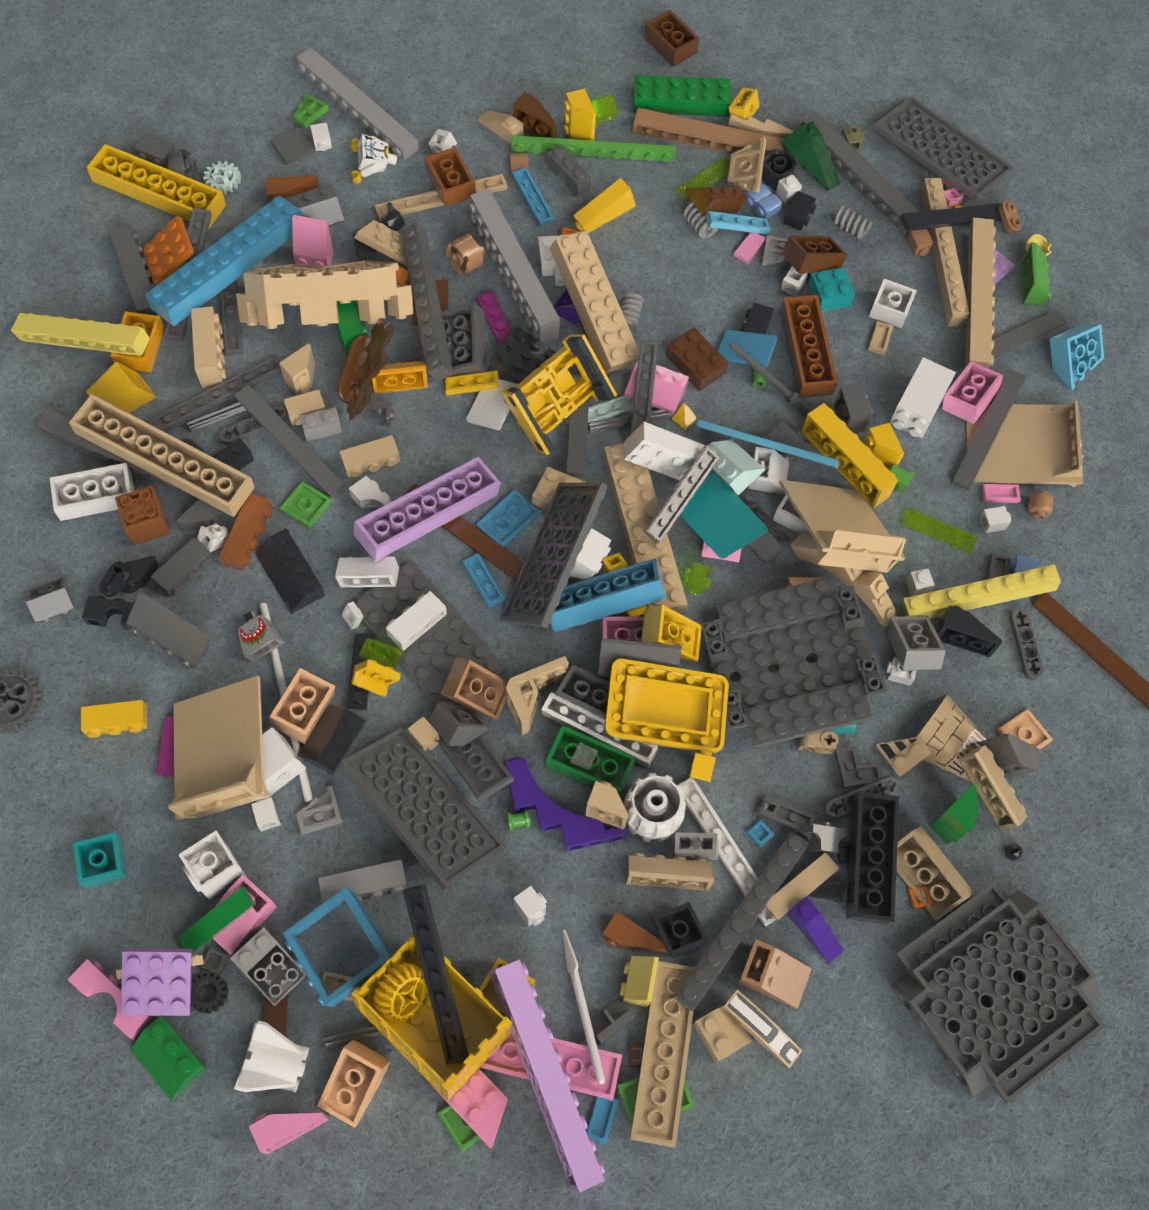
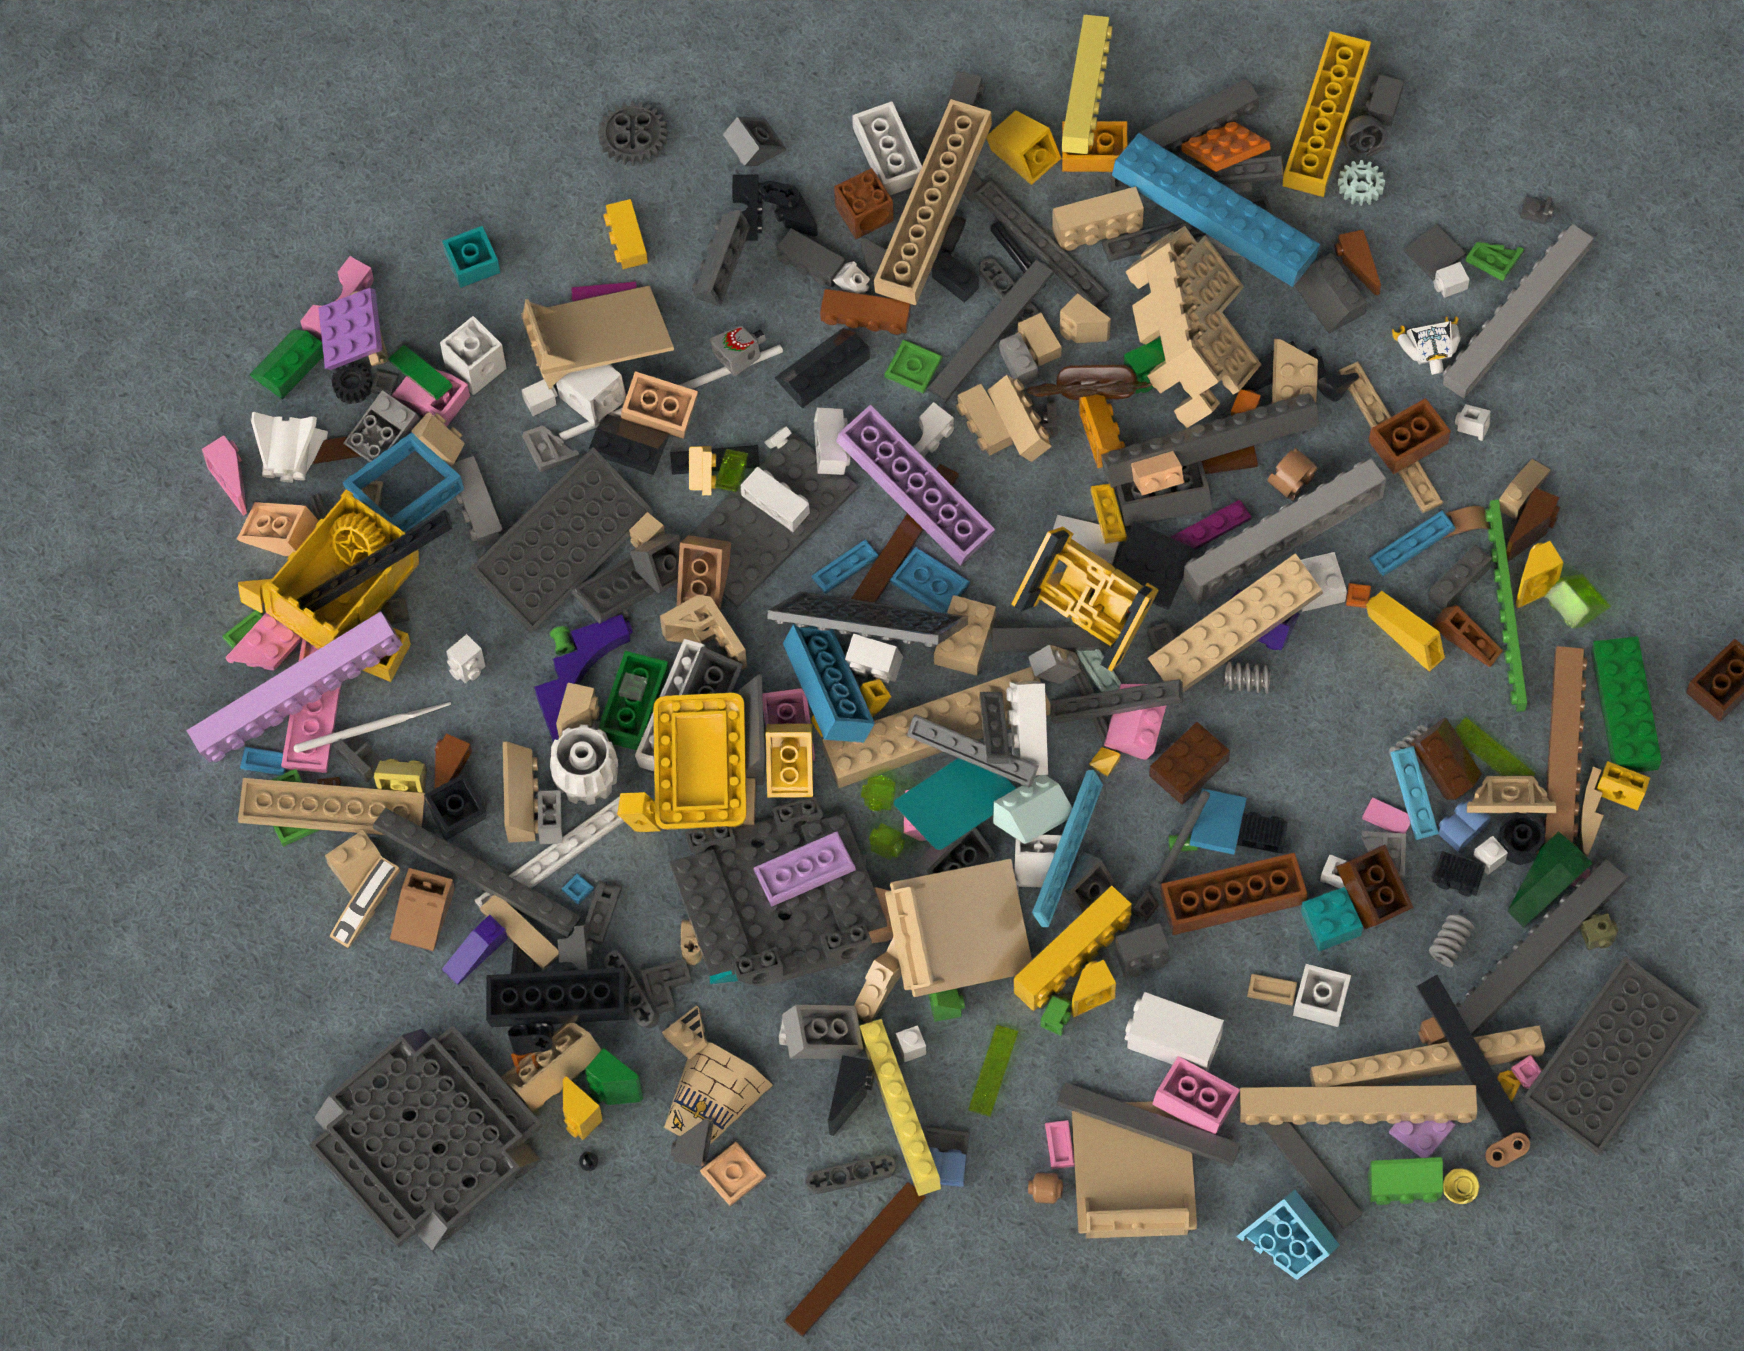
camera: 90 degrees right, 0 degrees up
(275, 80) = (1537, 210): none -> flat silver bracket
(294, 907) = (439, 438): none -> tan slope
(311, 241) = (1265, 299): bright pink slope -> none
(377, 427) = (1019, 417): none -> tan brick
(422, 1111) = (252, 594): none -> yellow slope
(452, 335) = (1157, 473): none -> light nougat brick
(604, 431) = (1054, 664): none -> light grey brick
(609, 174) = (1467, 635): none -> dark orange slope
(666, 473) = (994, 728): none -> dark grey tile
(742, 578) = (886, 842): none -> clear neon green brick
(773, 635) = (804, 868): none -> lavender tile
(907, 883) = (529, 1039): none -> black piece
(980, 850) = (580, 1111): none -> yellow slope
(993, 788) = (654, 1125): tan slope -> none
(995, 519) = (1016, 1133): white brick -> none

